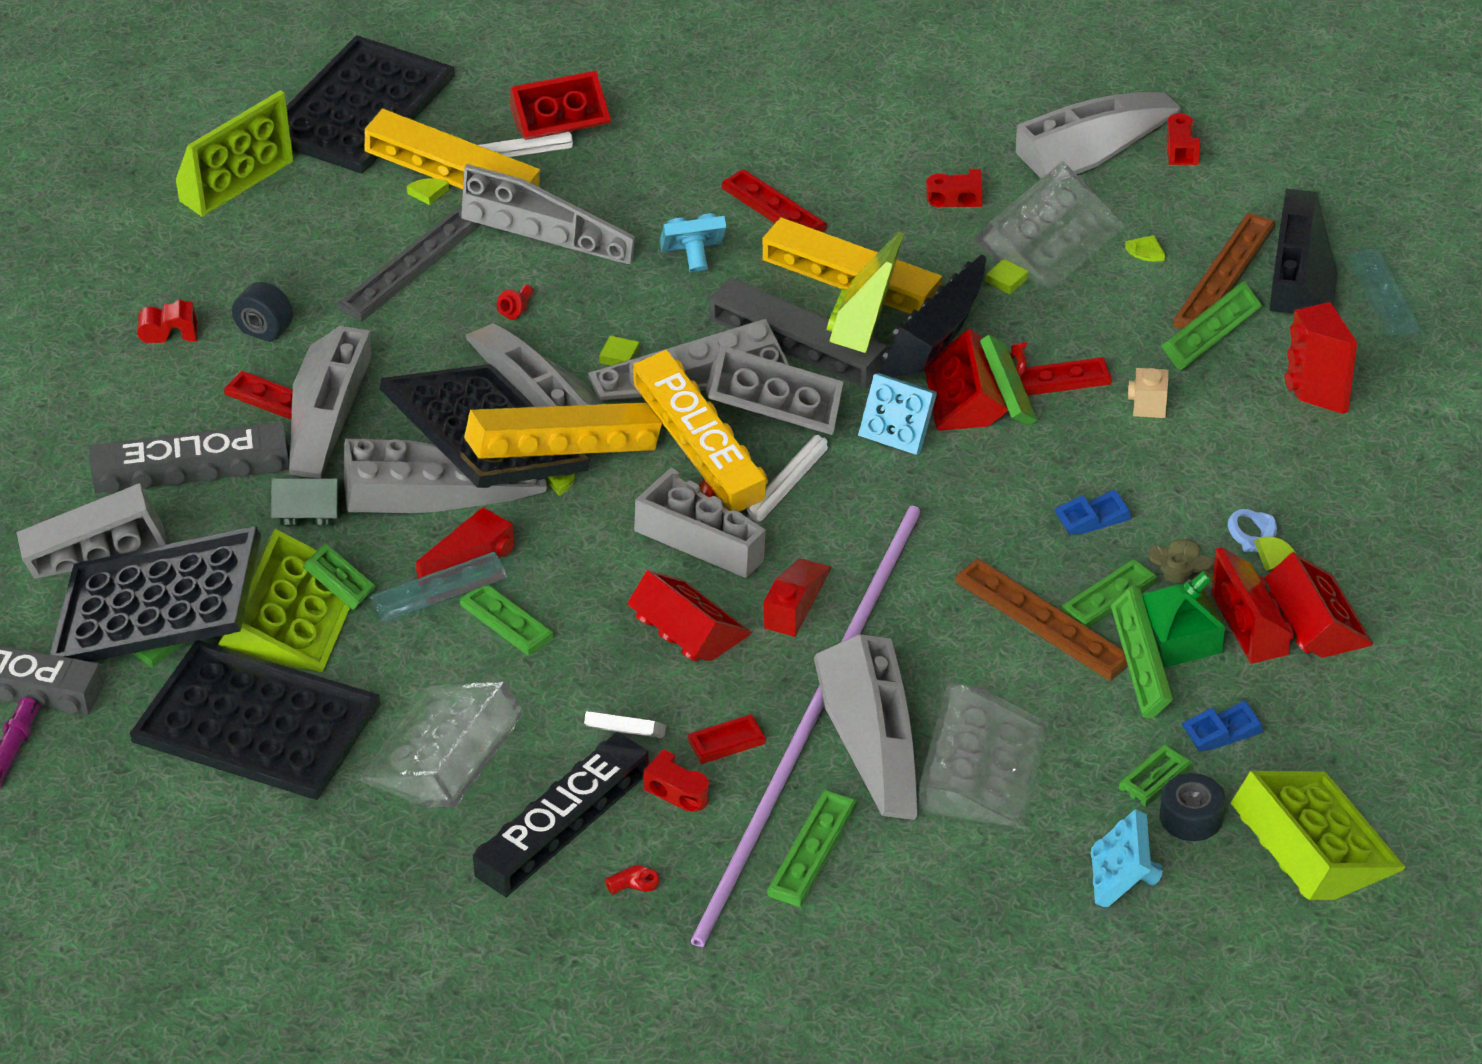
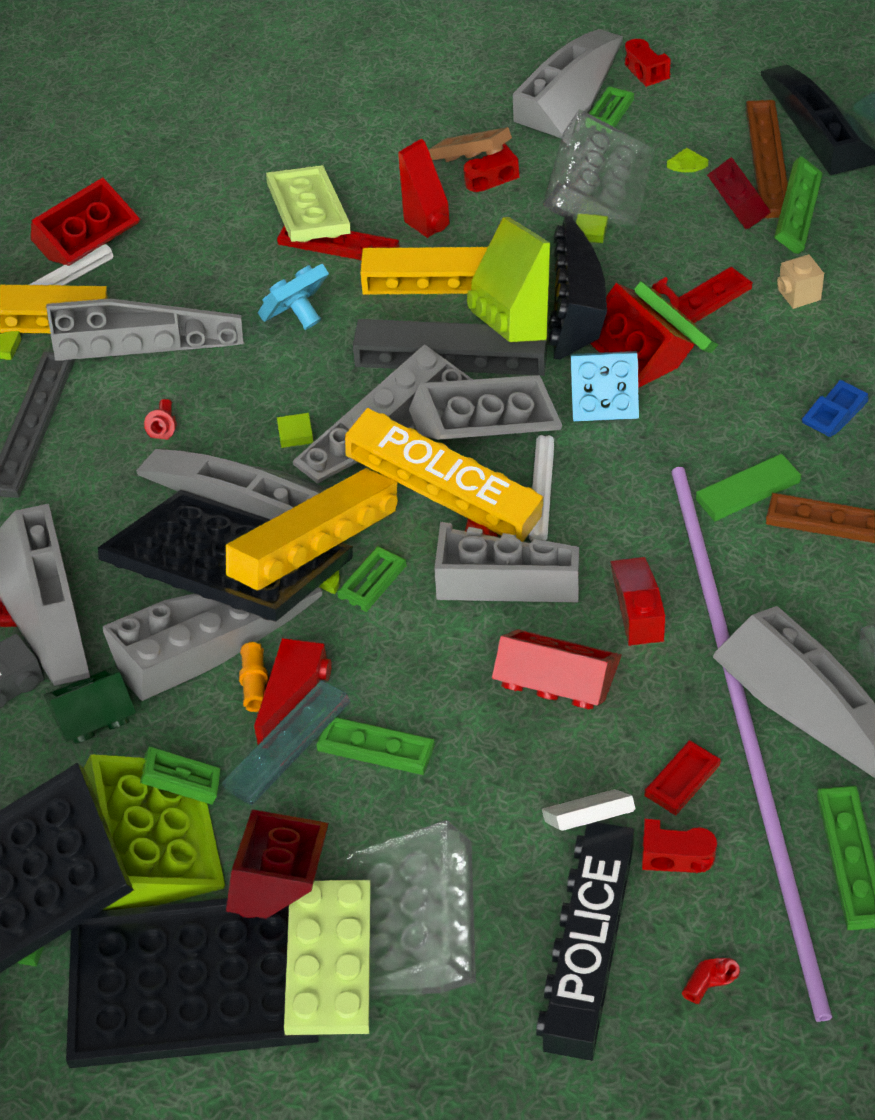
camera: 25 degrees left, 5 degrees up
(355, 656) = (274, 863): none -> dark red slope
(358, 742) = (329, 960): none -> yellowish green plate
(444, 526) = (252, 675): none -> light orange pin
(598, 498) = (346, 591): none -> bright green tile
(766, 160) = (308, 203): none -> yellowish green plate
(865, 184) = (422, 193): none -> red slope
(948, 159) = (470, 144): none -> medium nougat plate
(963, 546) = (748, 487): none -> bright green tile
(1117, 176) = (621, 109): none -> bright green tile
(1159, 294) = (739, 193): none -> dark red brick

